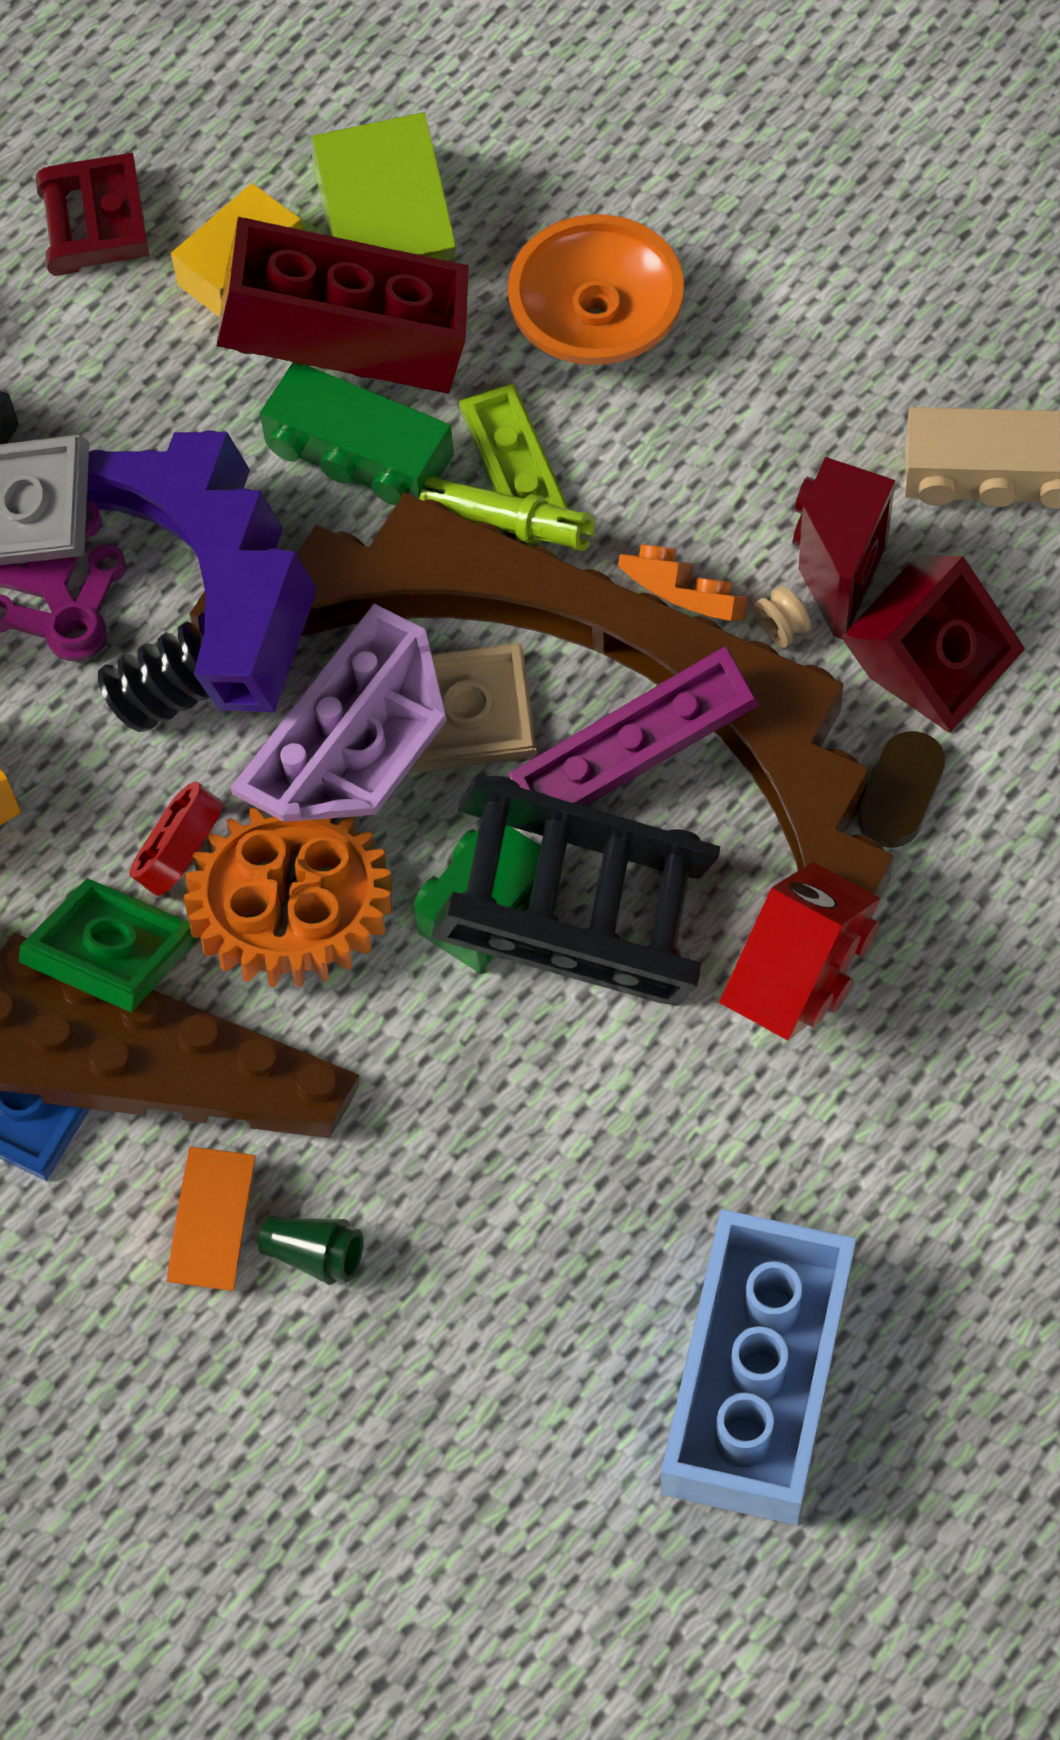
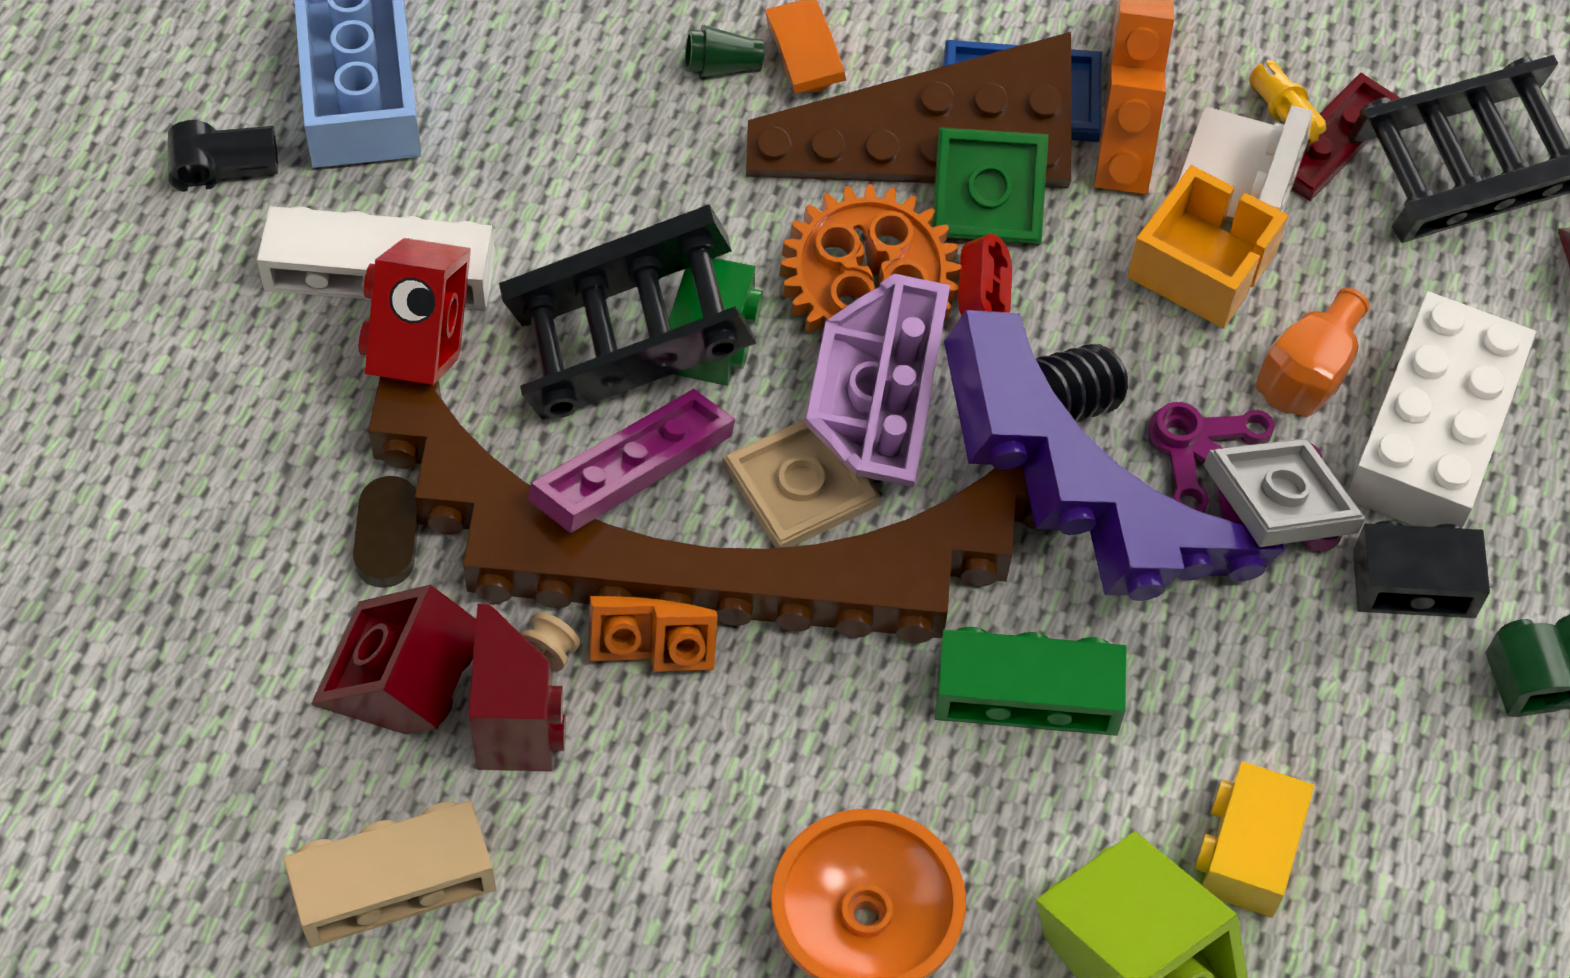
camera: 150 degrees right, 5 degrees down
(110, 208) = (1420, 854): dark red plate -> none
(343, 305) = (1104, 762): dark red brick -> none
(510, 446) = (868, 723): lime tile -> none
(528, 518) = (861, 645): lime pin -> none
(818, 1094) = (331, 250): none -> white brick
(973, 1307) = (204, 155): none -> black piece

